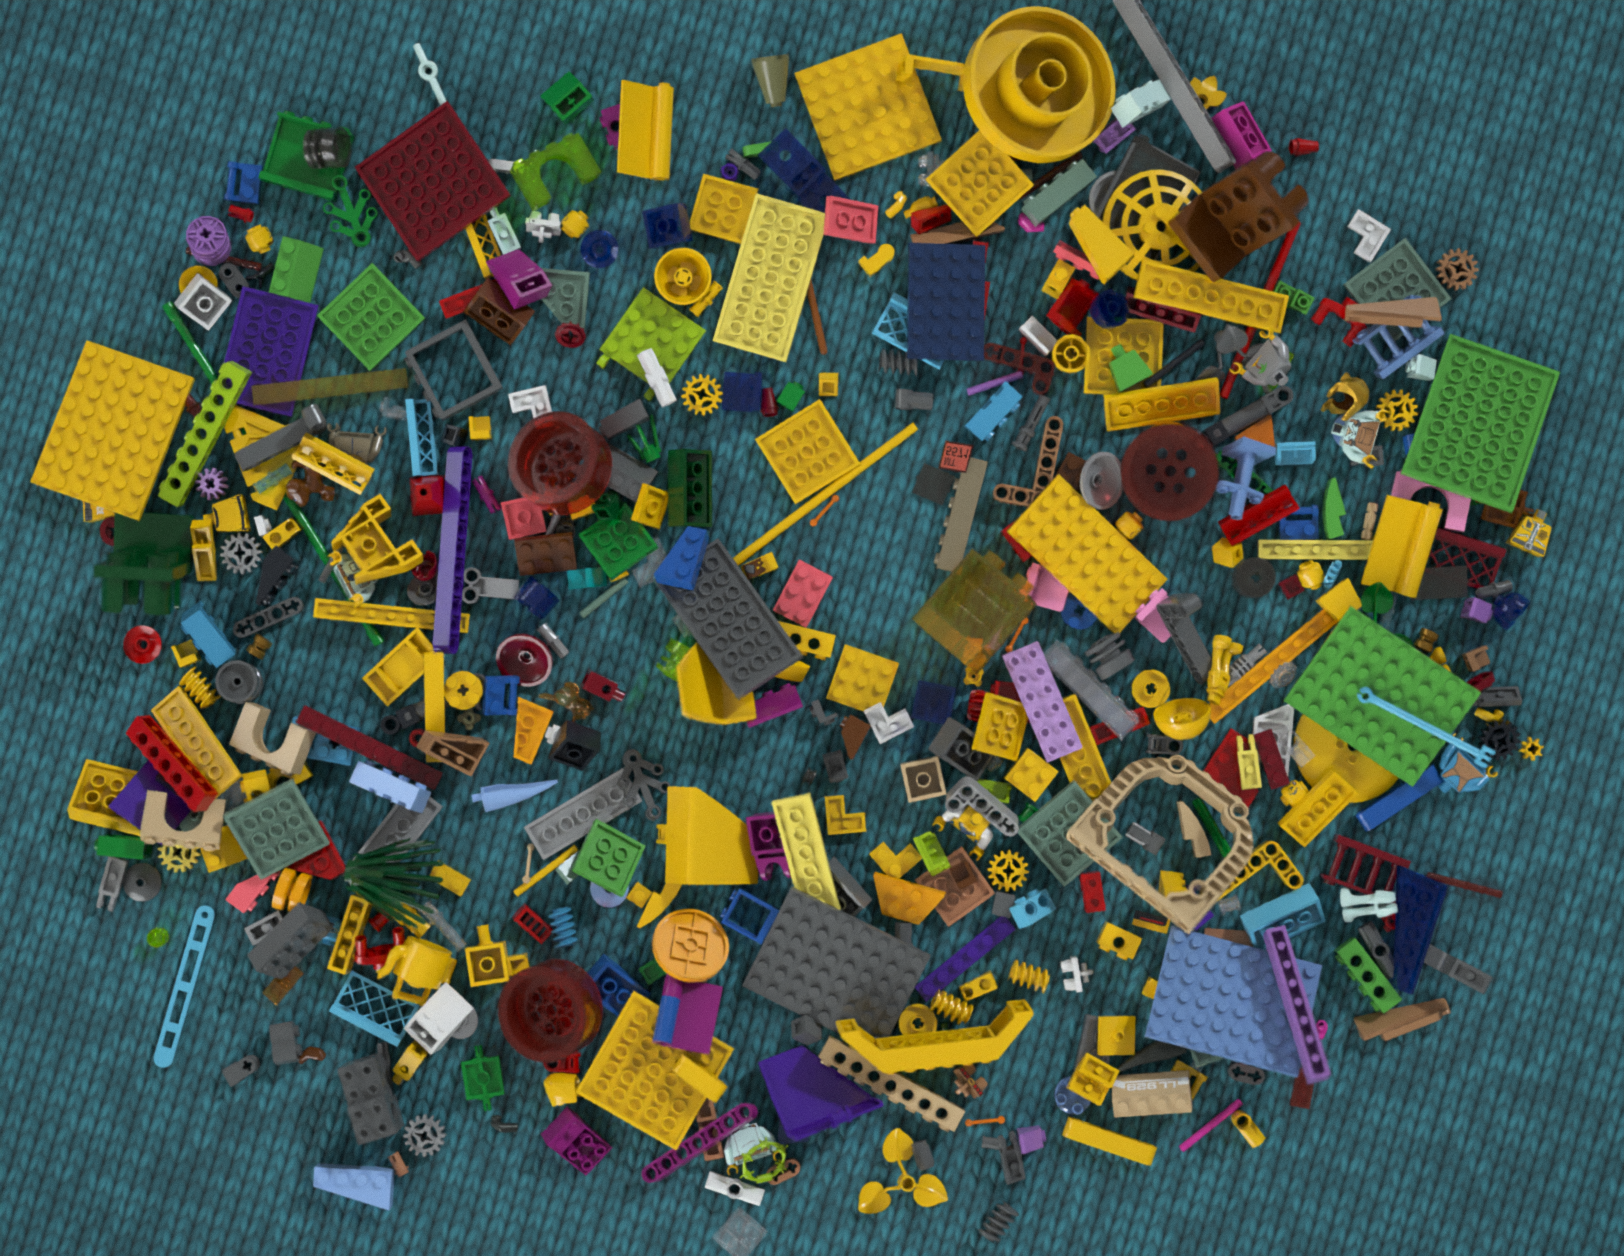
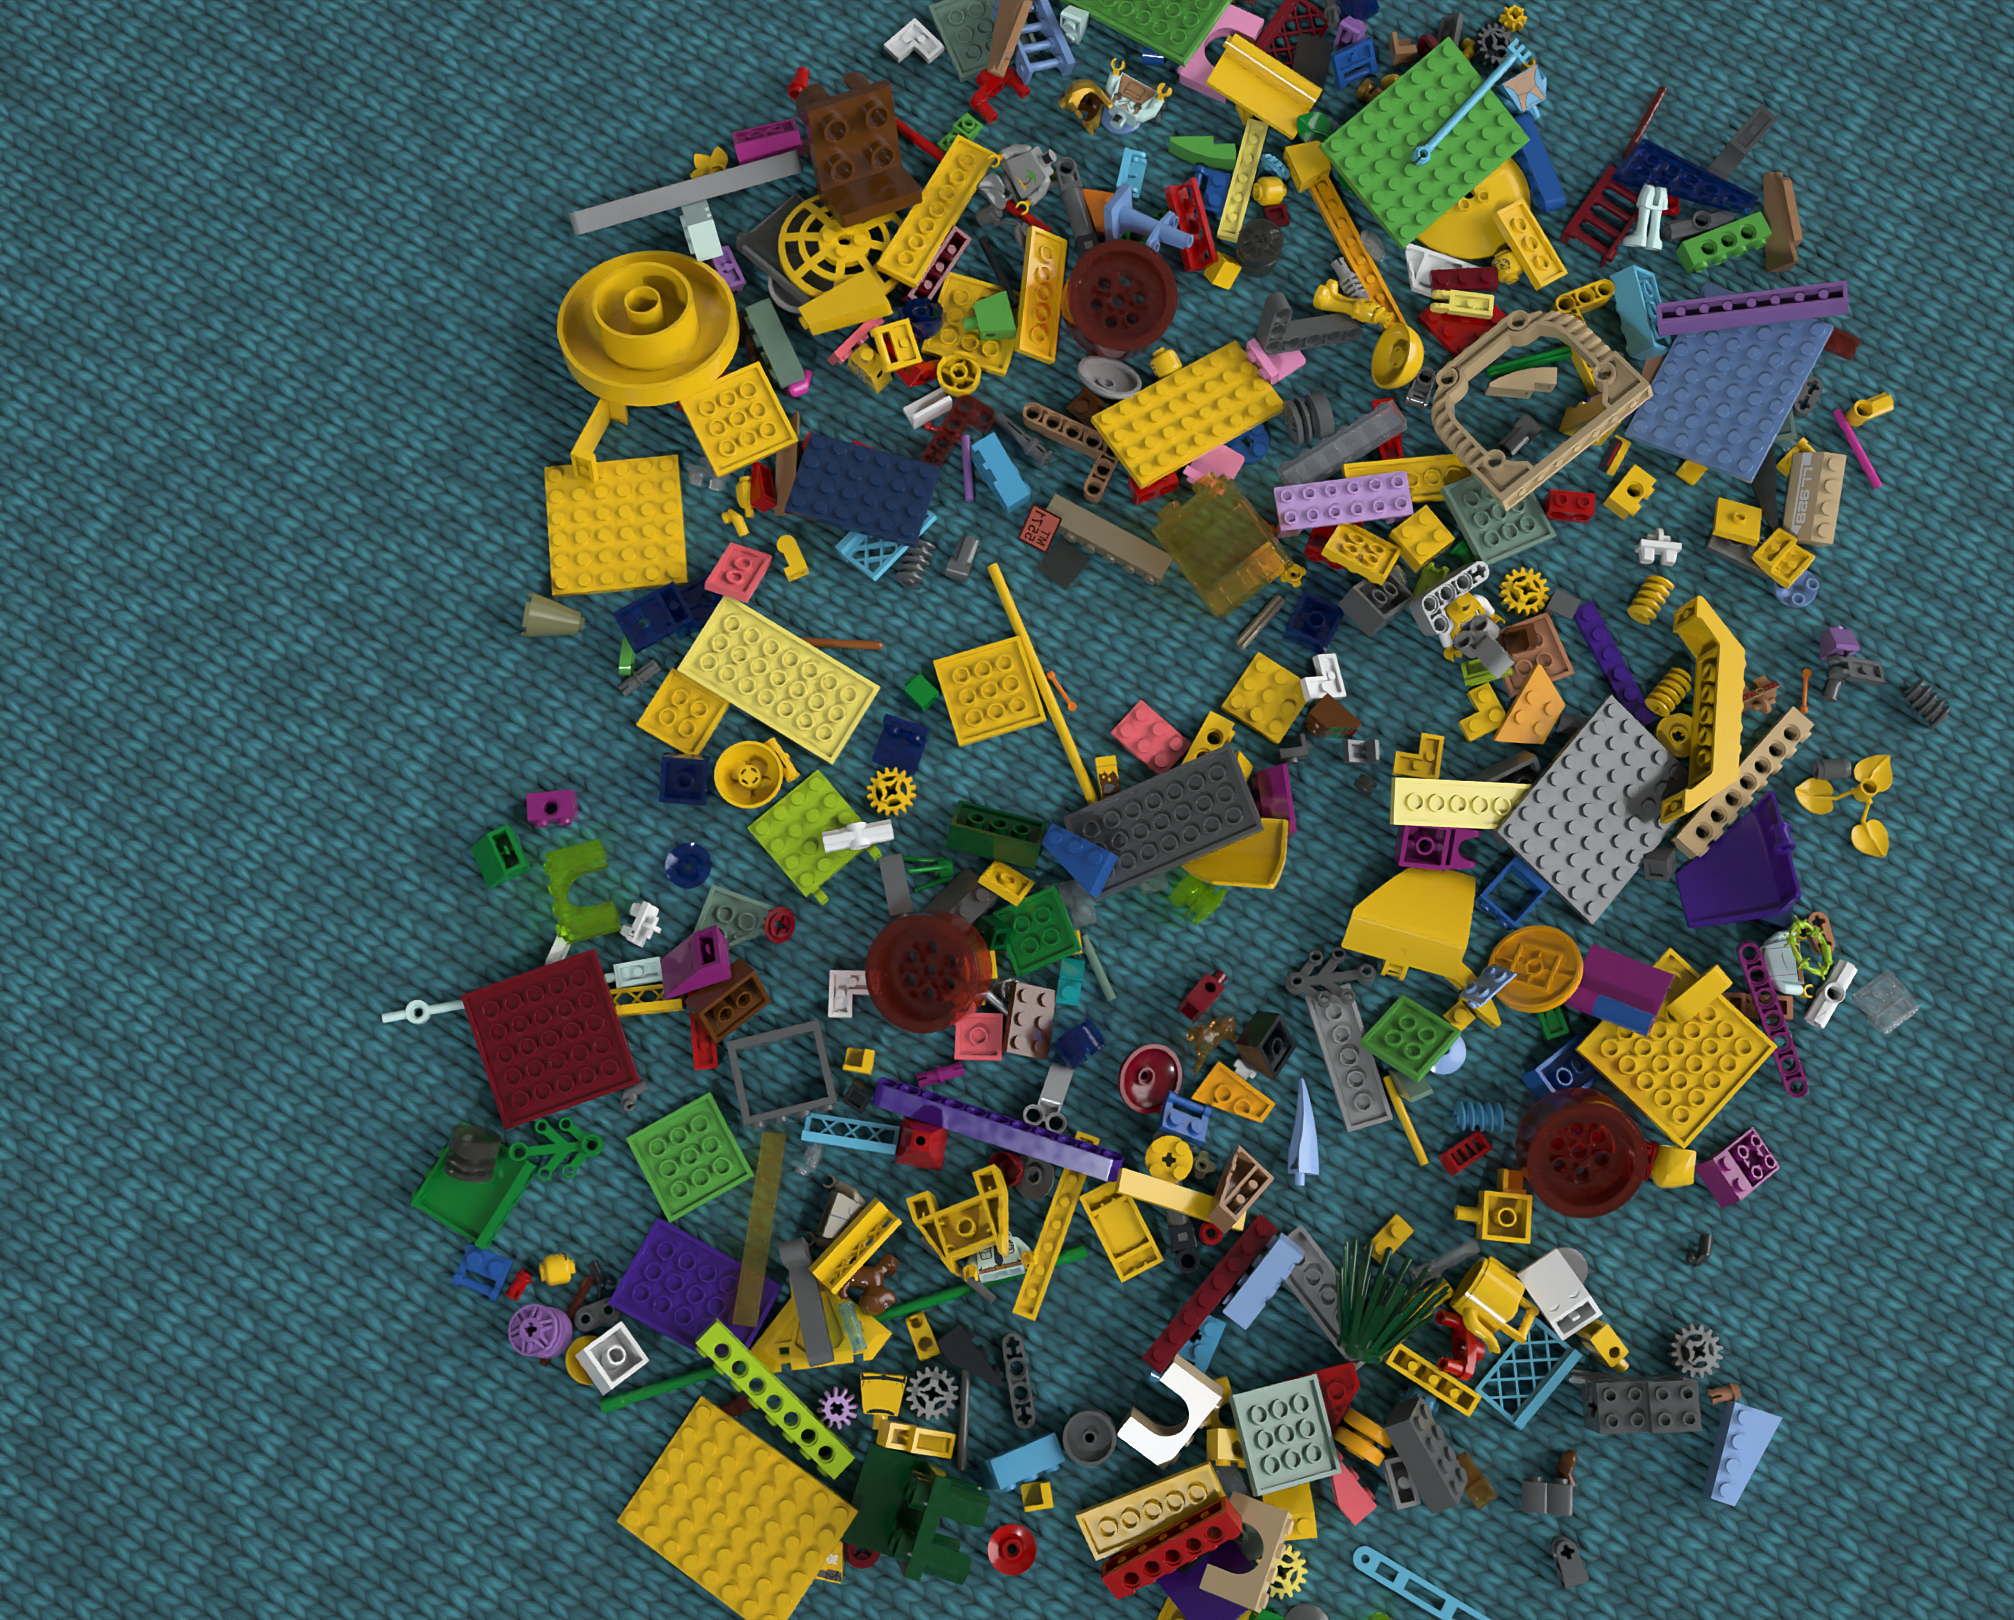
camera: 75 degrees left, 10 degrees down
(199, 689) = (1085, 1490): yellow piece -> none
(225, 583) = (963, 1420): none -> dark grey bar
(262, 643) = (1047, 1396): pearl gold wheel -> none
(263, 525) = (905, 1356): white plate -> none
(296, 269) = (606, 1233): bright green slope -> none
(379, 921) = (1422, 1339): red bush -> none
(483, 1077) = (1639, 1260): green plate -> none
(526, 879) = (1410, 1145): tan hinge -> none
(553, 640) = (1134, 1040): light grey axle -> none
(574, 224) = (650, 887): yellow head -> none
(645, 130) = (567, 774): yellow door -> none
(664, 908) = (1486, 985): none -> light blue hinge
(729, 167) = (637, 695): dark purple plate -> none
(769, 405) = (924, 718): dark red cone -> none
(828, 384) = (918, 649): yellow slope -> none
(923, 778) = (1399, 656): tan brick -> none
(925, 658) = (1259, 622): none -> dark tan axle
(947, 846) = (1482, 643): none -> light grey piece
(975, 704) = (1329, 575): red gear -> none
(978, 986) = (1649, 657): yellow leg -> none
(1032, 908) = (1575, 573): medium azure brick -> none
(1078, 300) = (902, 342): none -> yellow plate
(1109, 1141) = (1855, 559): yellow beam -> none
(1139, 689) = (1353, 376): yellow plate -> none
(1299, 751) = (1461, 248): clear piece -> none
(1369, 521) = (1225, 119): tan axle -> none
(1403, 415) = (1108, 52): yellow gear -> none
(1449, 619) = (1351, 58): none -> blue plate

